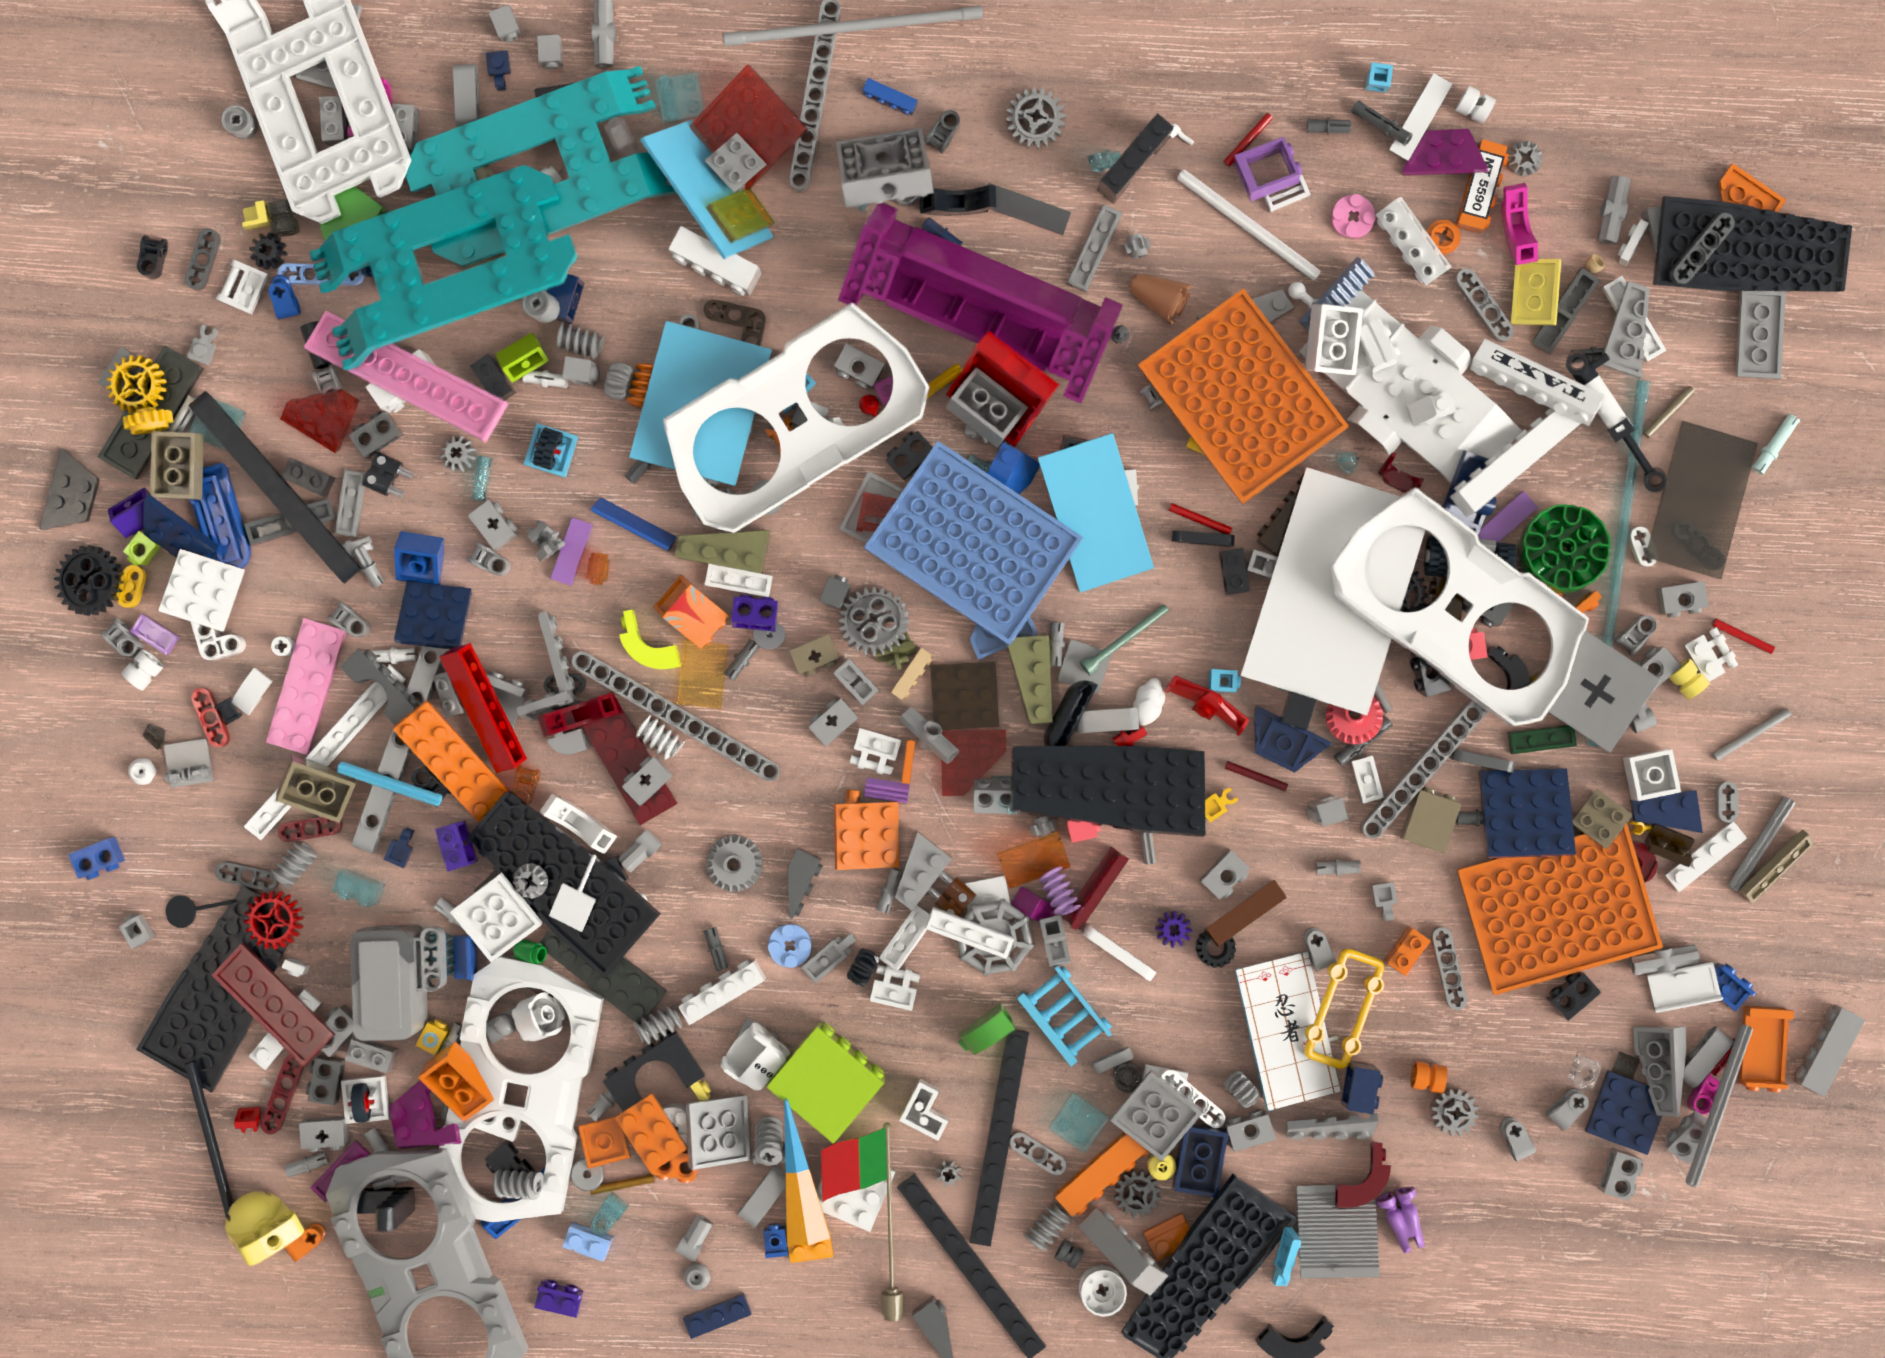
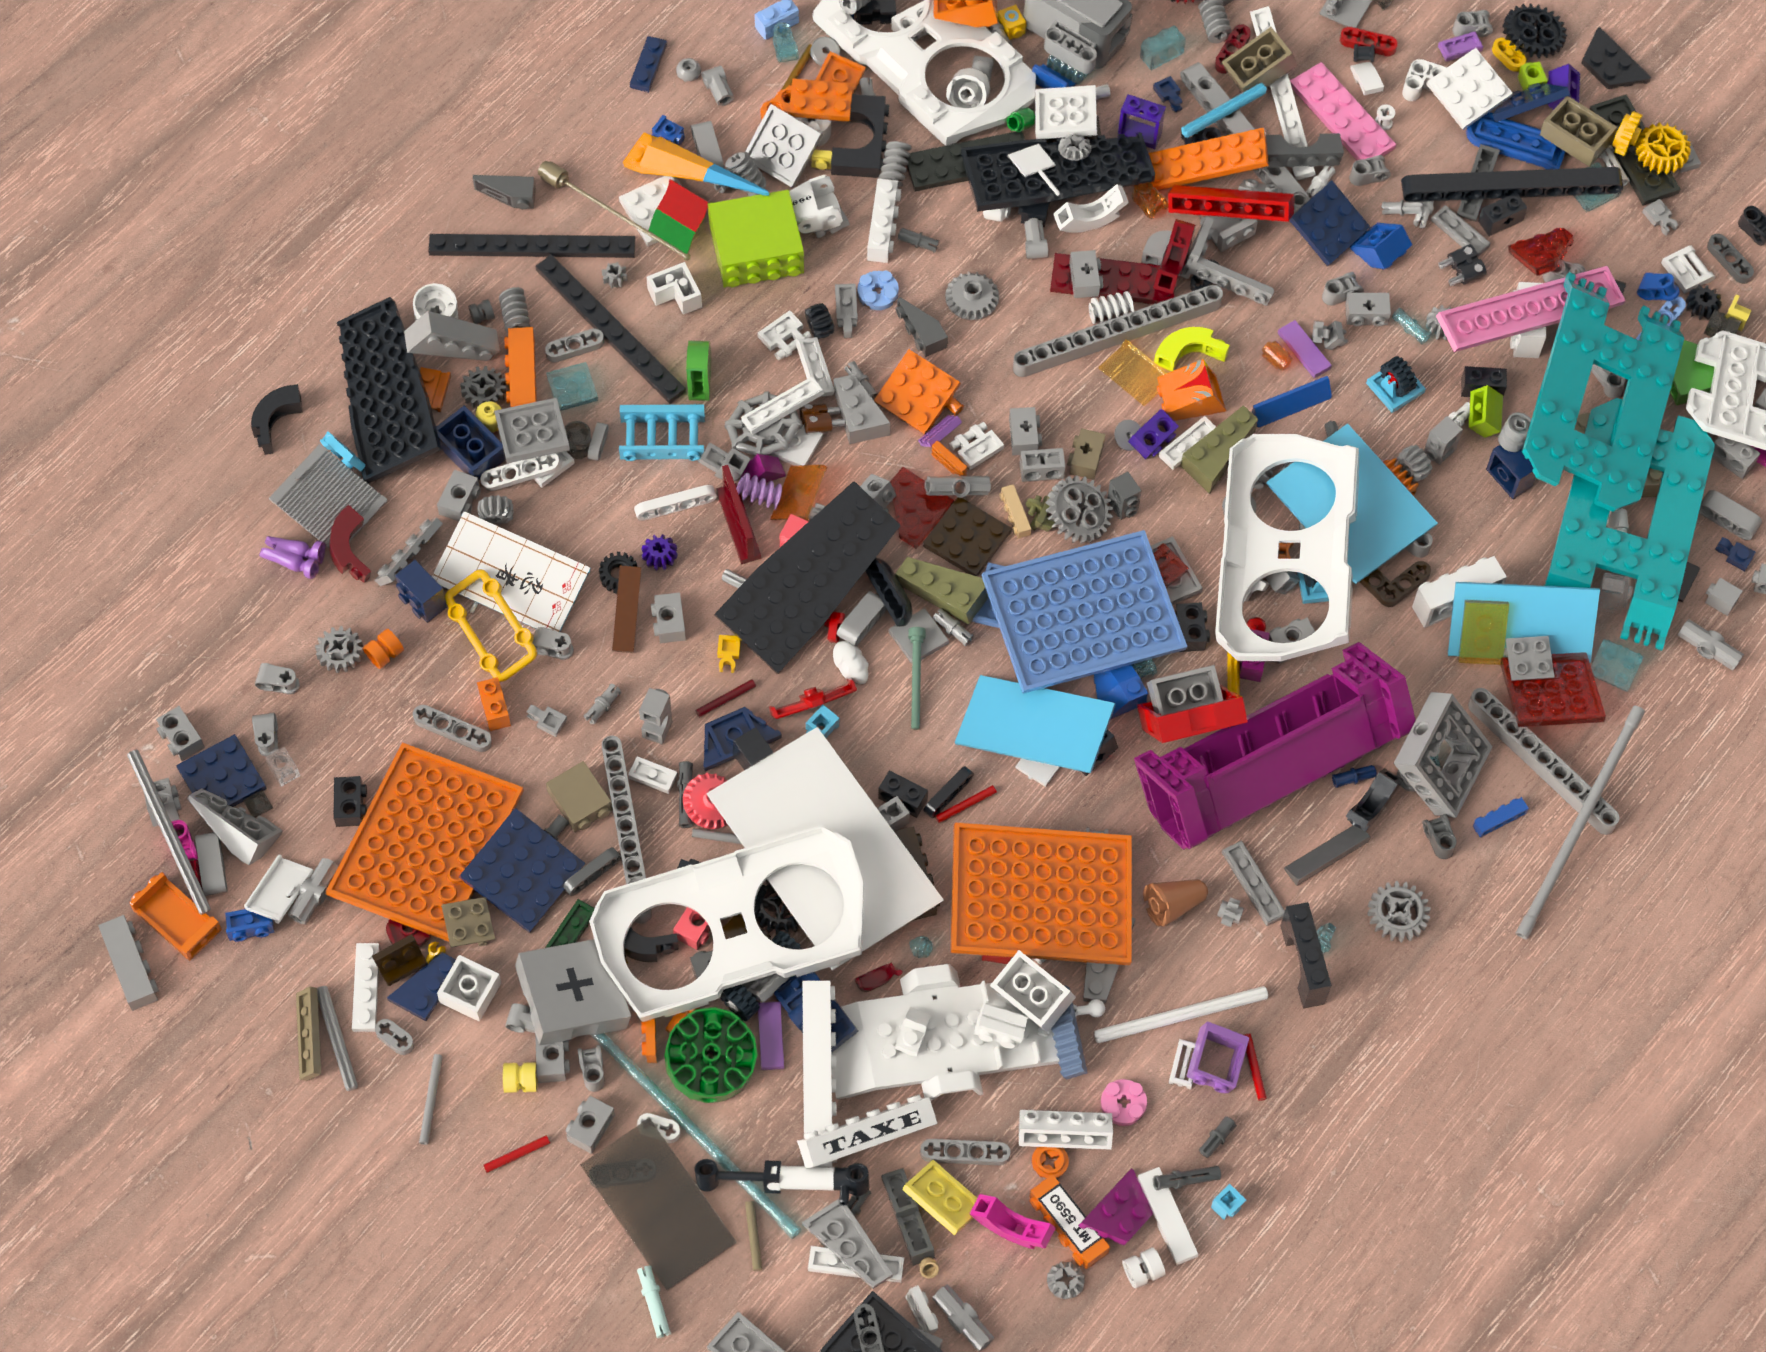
camera: 125 degrees right, 25 degrees down
(142, 669) = (1439, 20): white wheel -> none
(378, 439) = (1498, 278): dark grey brick -> none
(579, 341) = (1467, 459): light grey piece -> none
(741, 660) = (1124, 402): dark grey pin -> none
(1120, 334) = (1167, 844): dark grey axle -> none
(1177, 131) = (1307, 1014): white hand -> none
(1704, 658) = (523, 1108): white plate -> none

